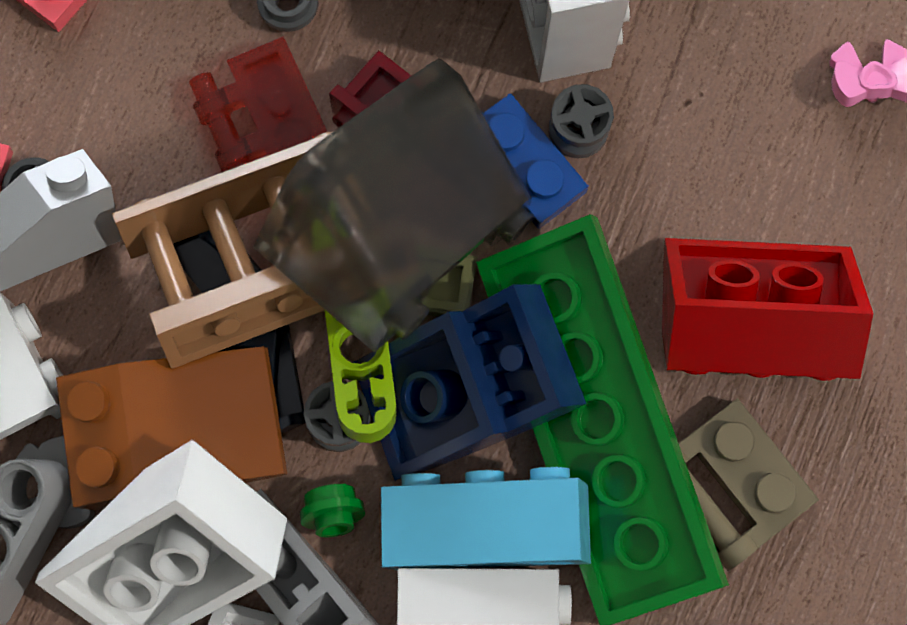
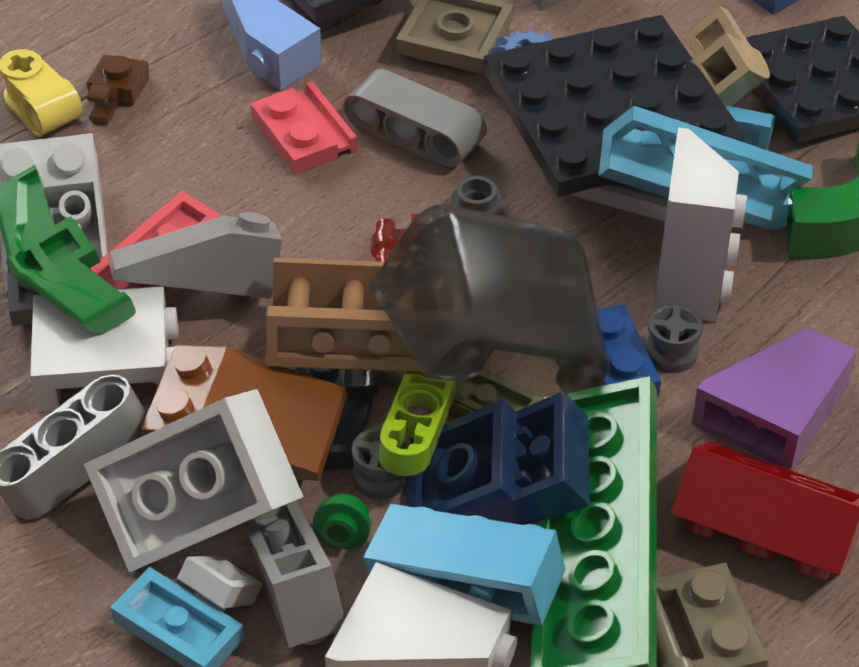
camera: 25 degrees right, 30 degrees down
(723, 161) = (776, 396): none -> medium lavender slope

